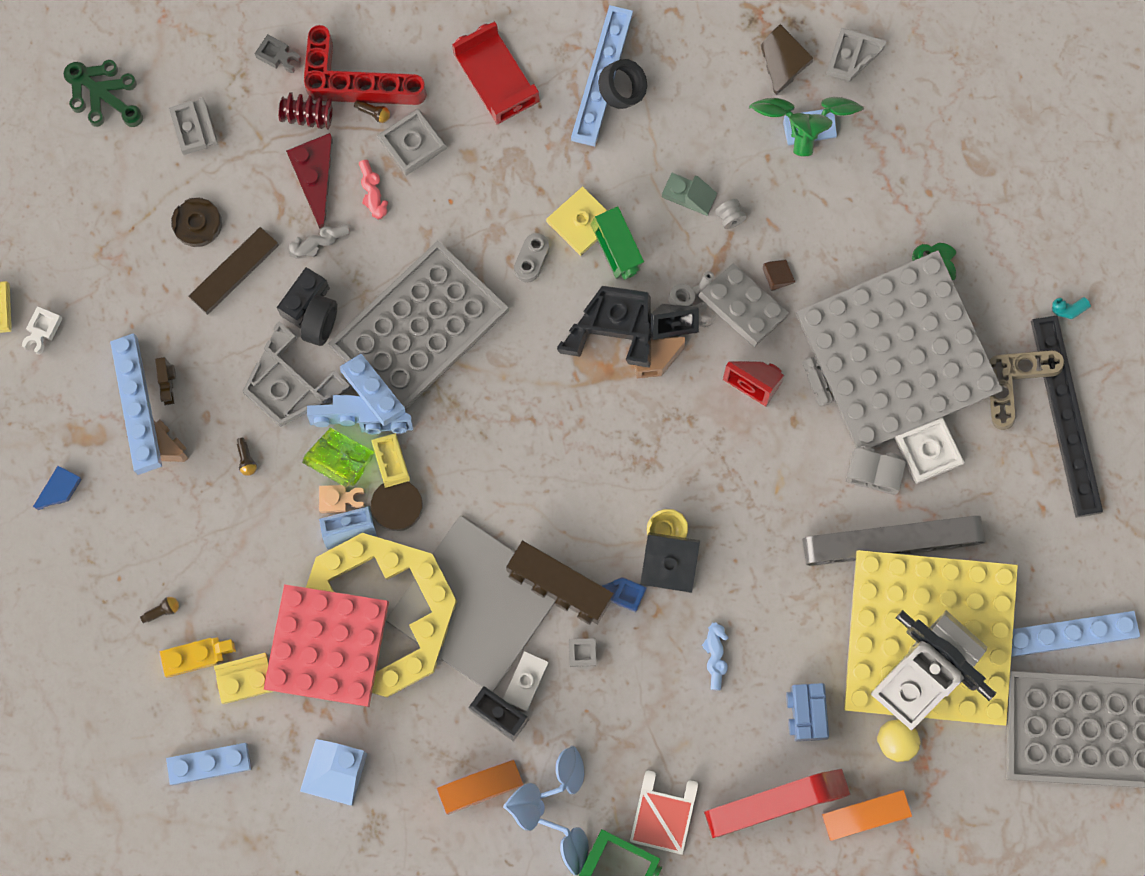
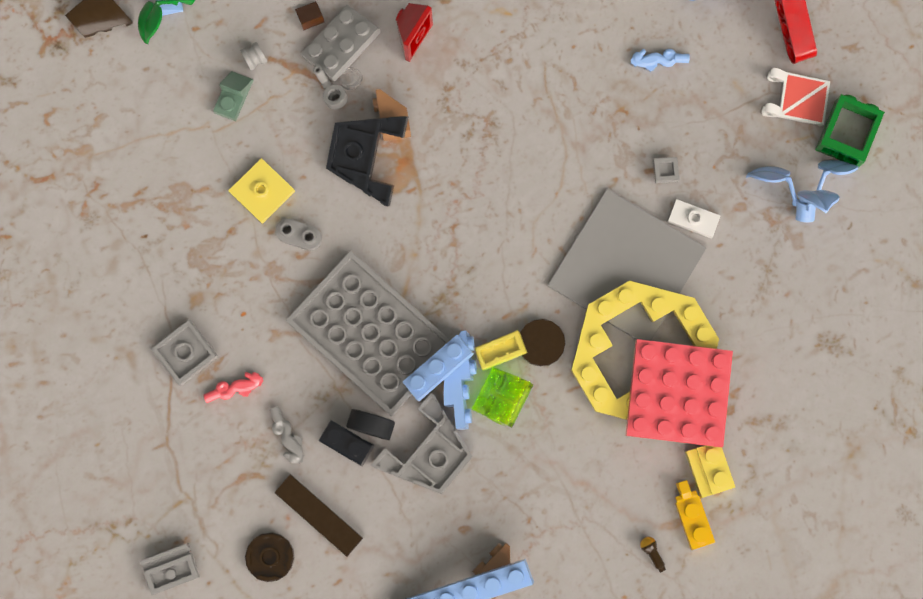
camera: 95 degrees left, 5 degrees up
(165, 376) = (427, 570): dark brown plate -> none
(208, 764) = (789, 495): light blue plate -> none
(247, 464) = (511, 484): dark brown piece -> none
(275, 52) = (91, 494): dark grey plate -> none
(306, 111) = (154, 455): dark red piece -> none
(312, 165) = (211, 448): dark red wing -> none
(334, 771) = (786, 380): light blue slope -> none
(336, 498) = (538, 399): light nougat plate -> none
(346, 525) = (563, 386): light blue slope -> none
(354, 80) = (121, 413): red beam -> none
(379, 113) = (154, 385): dark brown piece -> none
(479, 787) = (791, 251): orange slope -> none
(494, 73) = (113, 279): red panel -> none
(498, 713) = (728, 236): black brick -> none
(559, 582) = (608, 189): dark brown brick -> none
(607, 87) = (123, 143): black tyre -> none
(608, 51) = (115, 177): light blue plate -> none
(617, 243) = (288, 150): green window -> none
(626, 593) = (609, 140): blue tile -> none
(668, 523) = (551, 101): light yellow hair -> none
(670, 562) = (582, 97): black plate -> none
(674, 321) = (360, 99): black slope -> none

